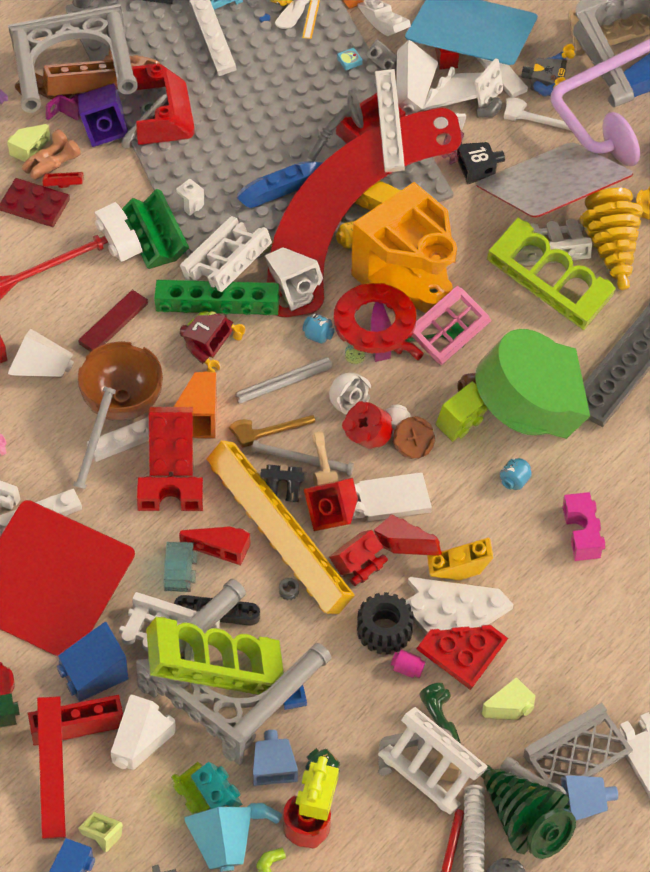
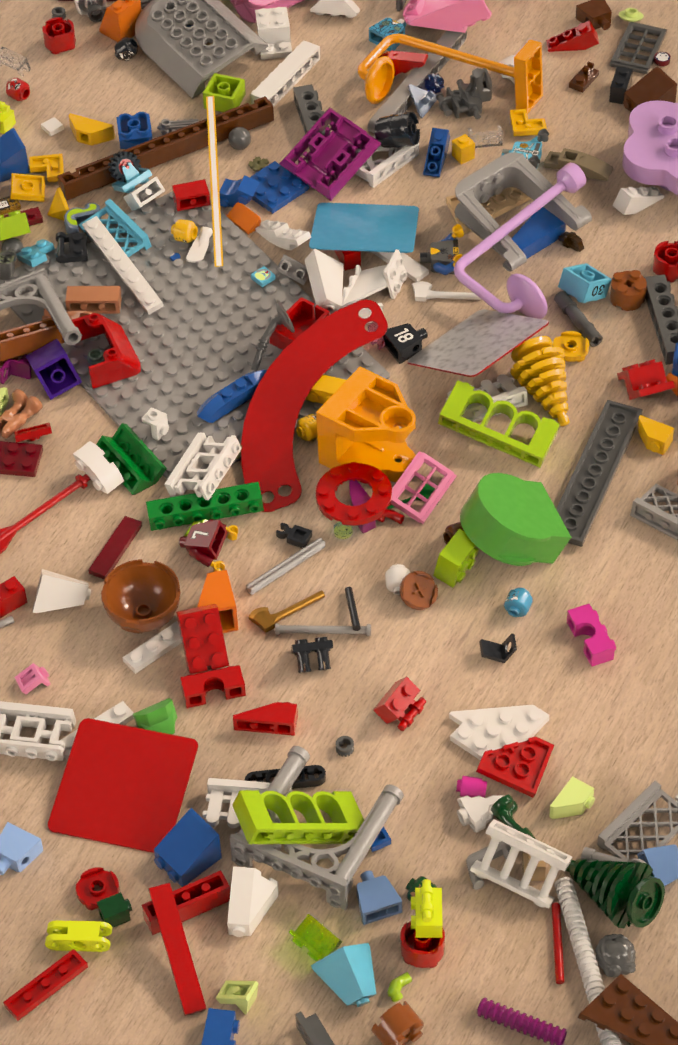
camera: 10 degrees left, 5 degrees down
(94, 437) = (131, 650): light grey bar -> none
(103, 515) = (158, 717): none -> bright green slope
(150, 114) = (107, 344): light grey piece -> none
(165, 47) = (94, 299): none -> nougat brick
(179, 566) = (240, 748): clear light blue brick -> none
(215, 787) = (330, 933): teal bracket -> none
(262, 811) = (380, 944): medium azure arm -> none
(280, 528) = (322, 694): yellow brick -> none
(295, 275) = (272, 471): white slope -> none
(303, 350) = (295, 536): none -> black plate
(318, 328) = (304, 514): dark azure head -> none
(323, 476) = (348, 642): tan brick -> none
(331, 504) = (363, 663): red slope -> none
(339, 441) = (352, 609): none -> black bar
(348, 390) = (349, 564): white cylinder -> none
(368, 425) = (375, 587): red brick -> none
(389, 121) = (318, 320): white tile -> none
(389, 608) = (441, 769): black tyre -> none
(392, 496) = (410, 647): white tile -> none
(404, 538) = (439, 678): red slope -> none
(405, 690) = (476, 811): none -> white rock
(461, 561) = (493, 687): yellow slope -> none
(478, 522) = (497, 651): none -> black bracket
(492, 109) = (402, 295): dark grey arm -> none

